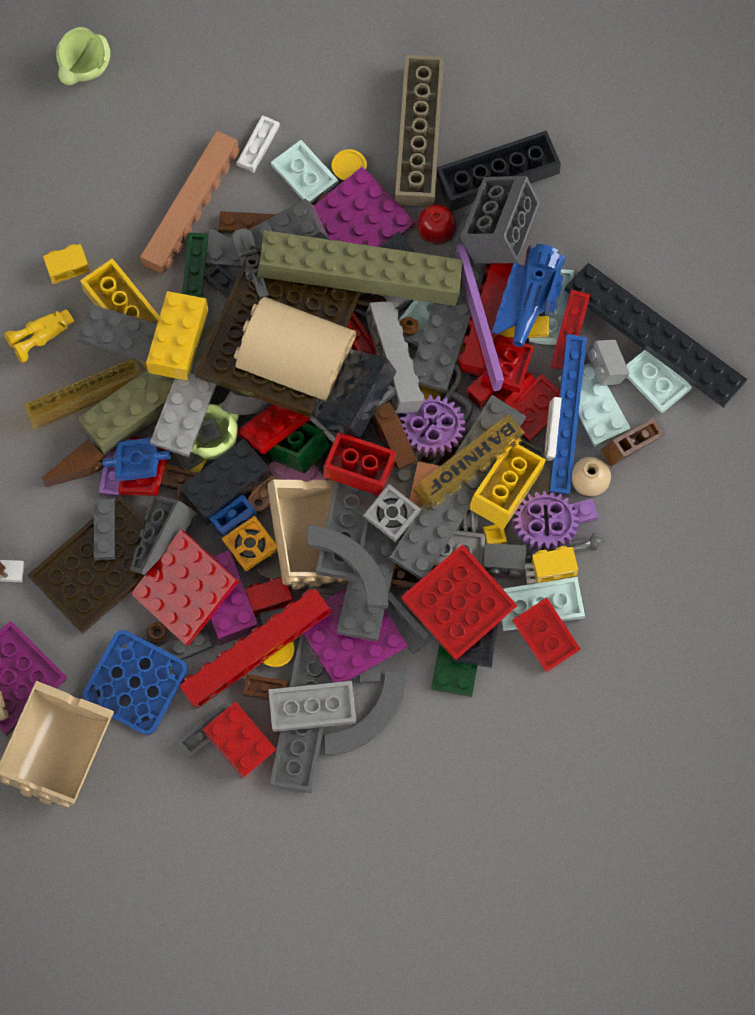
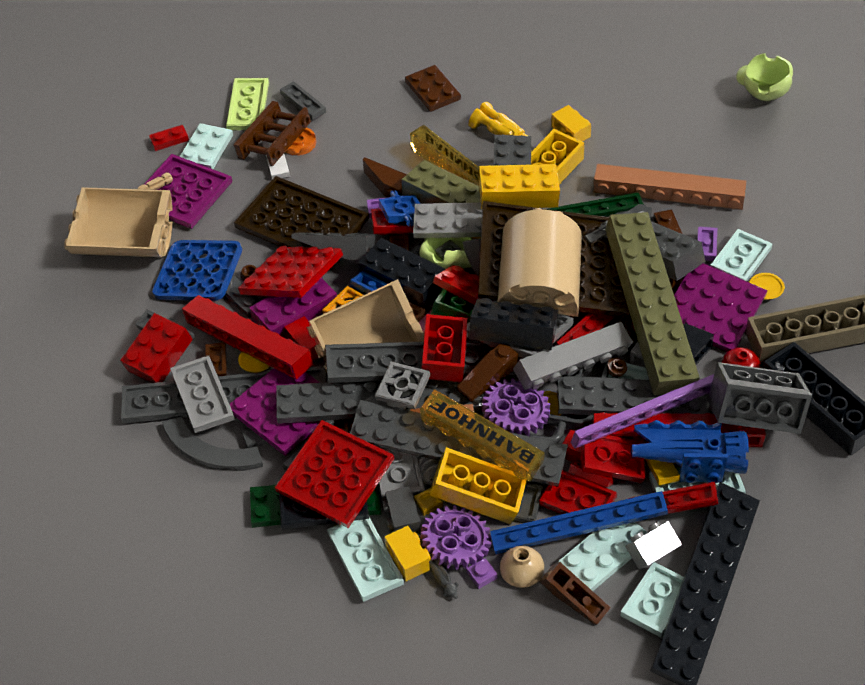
camera: 75 degrees right, 20 degrees down
(104, 529) = (331, 210): dark grey plate -> none
(258, 143) = (754, 219): white tile -> none
(276, 195) = (708, 237): none -> medium lavender plate
(357, 558) = (344, 374): dark grey tile -> none
(546, 634) = (329, 565): red plate -> none
(552, 429) = (556, 509): white tile -> none

